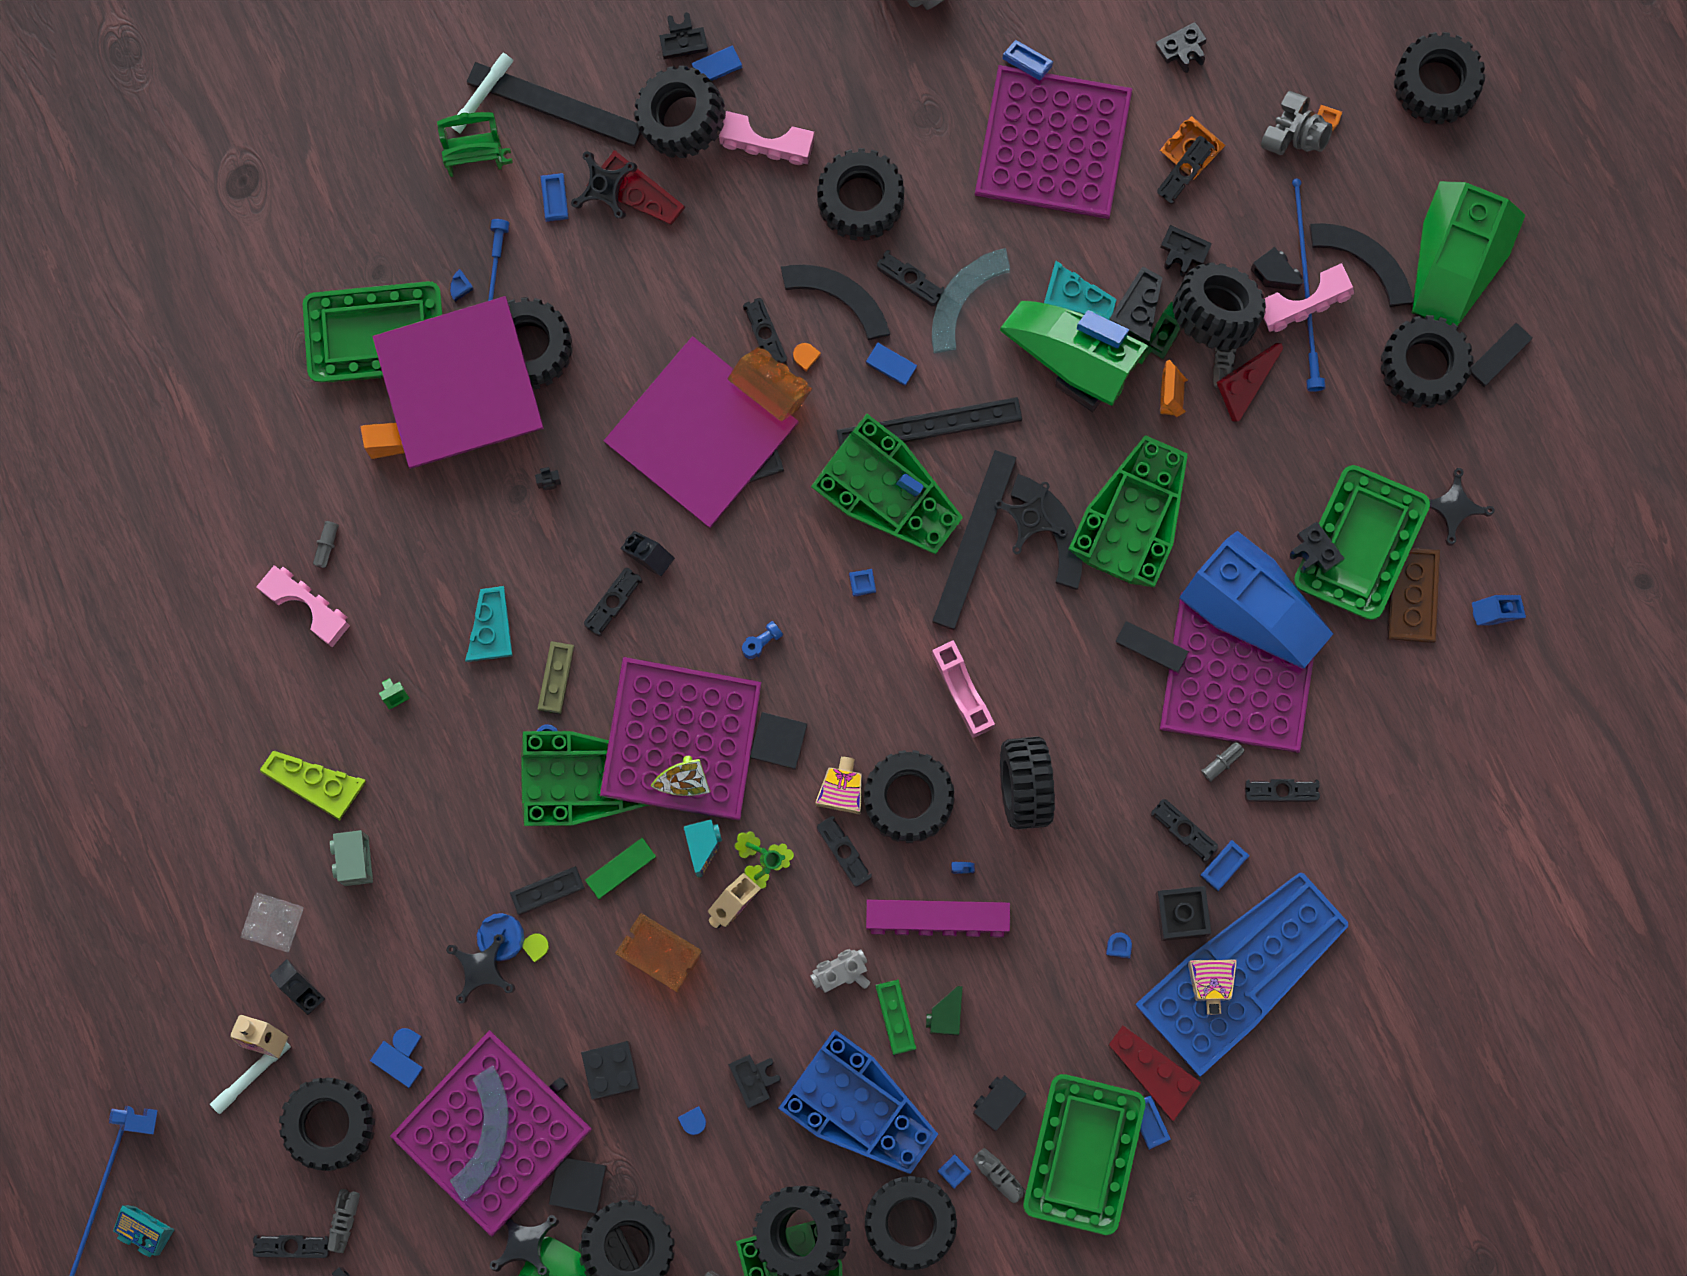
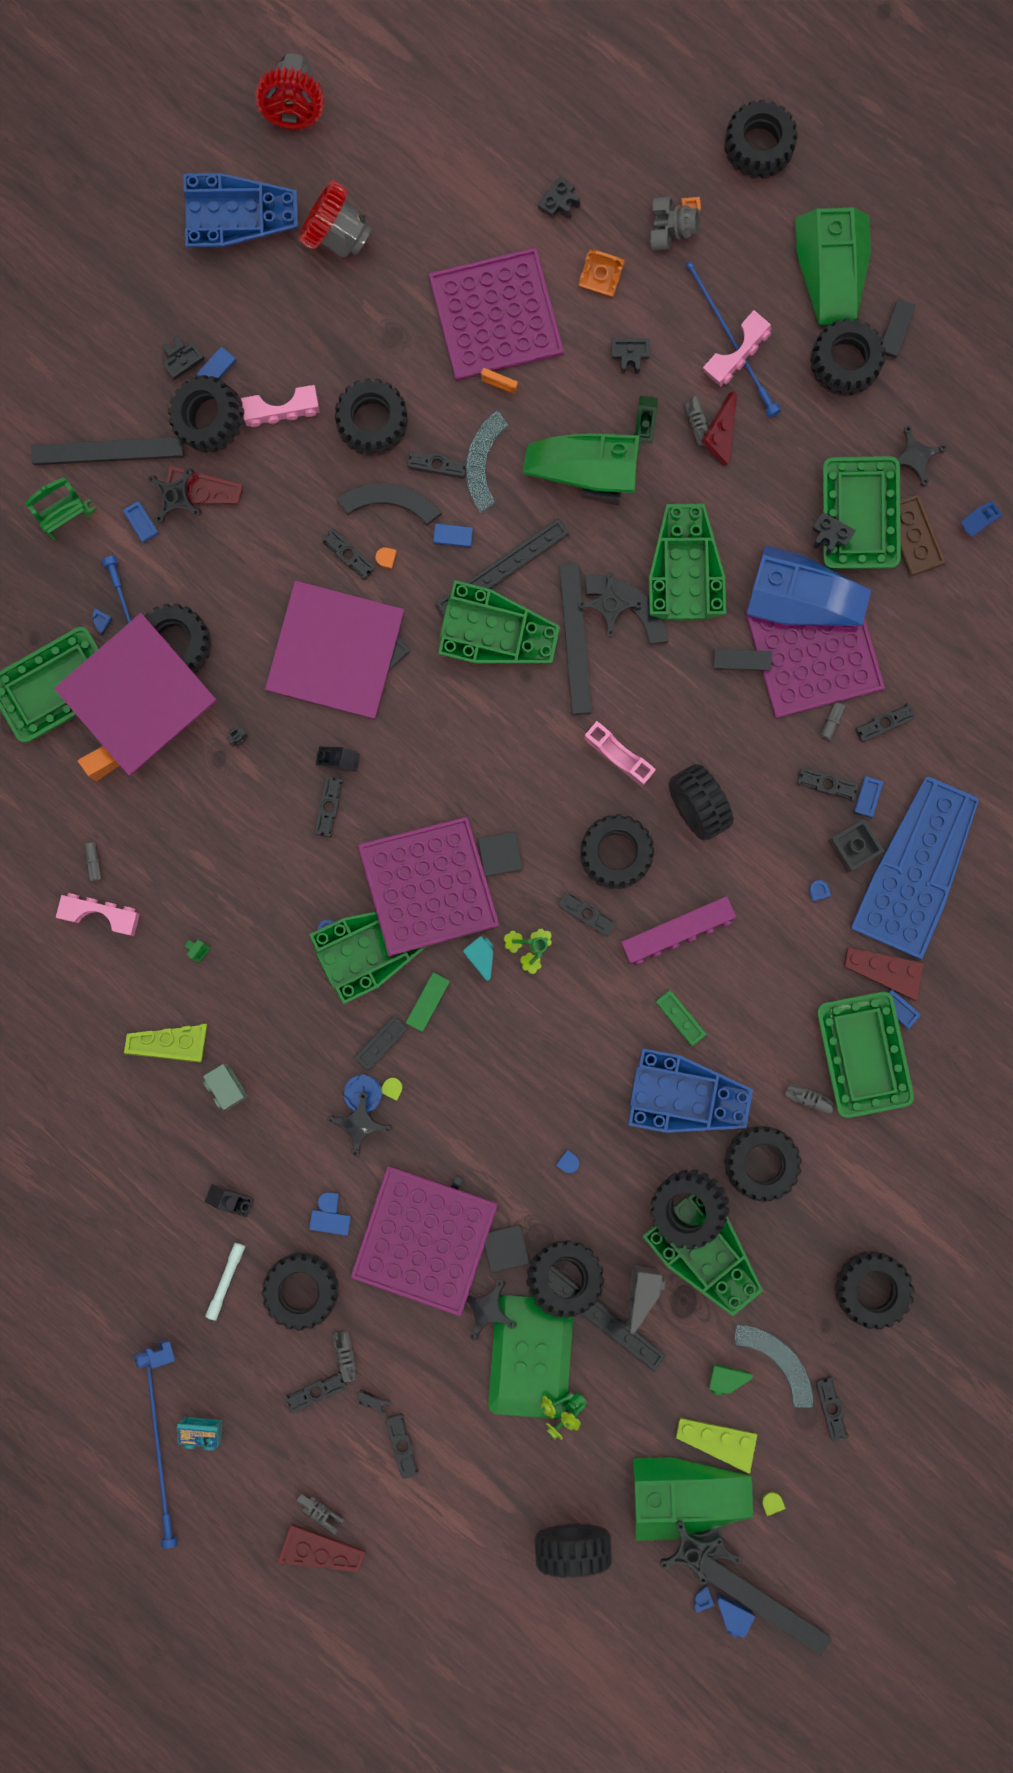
camera: 30 degrees left, 5 degrees up
(251, 1034) = (213, 1251): tan torso -> none
(272, 922) = (187, 1161): clear slope -> none
(491, 627) = (246, 867): teal wing -> none
(492, 1136) = (427, 1243): clear light blue tile -> none
(496, 72) = (52, 444): light aqua piece -> none
(556, 677) = (313, 882): olive tile -> none
(610, 1070) = (491, 1154): black brick -> none
(659, 953) = (486, 1051): clear orange piece -> none
(683, 779) = (445, 915): shield -> none
(728, 905) = (521, 992): tan torso -> none
(753, 645) = (449, 791): blue leg -> none
(753, 1079) = (598, 1112): black plate -> none
(770, 383) = (370, 590): clear orange piece -> none
(841, 788) = (564, 868): torso -> none
(845, 968) = (628, 999): light grey brick -> none
(862, 582) = (507, 708): blue tile -> none
(910, 485) = (510, 619): blue tile -> none
(946, 1014) = (717, 999): dark green slope -> none
(954, 1171) = (775, 1110): blue tile -> none
(962, 867) = (678, 886): blue tile -> none
(999, 1102) = (785, 1045): black brick -> none
(1021, 216) = (499, 381): none -> orange tile
(1027, 60) = (448, 260): blue tile -> none
(1074, 293) = (565, 421): teal wing -> none
(1102, 329) = (601, 438): tile -> none
(1138, 305) = (616, 410): black wing -> none
(1172, 390) = (669, 462): orange slope -> none
(1194, 156) = (607, 277): black piece -> none
(1211, 324) = (678, 382): black tyre -> none
(1212, 982) = (901, 886): torso -> none
(1275, 272) = (706, 339): black slope -> none
(1368, 252) = (769, 295): black tile -> none

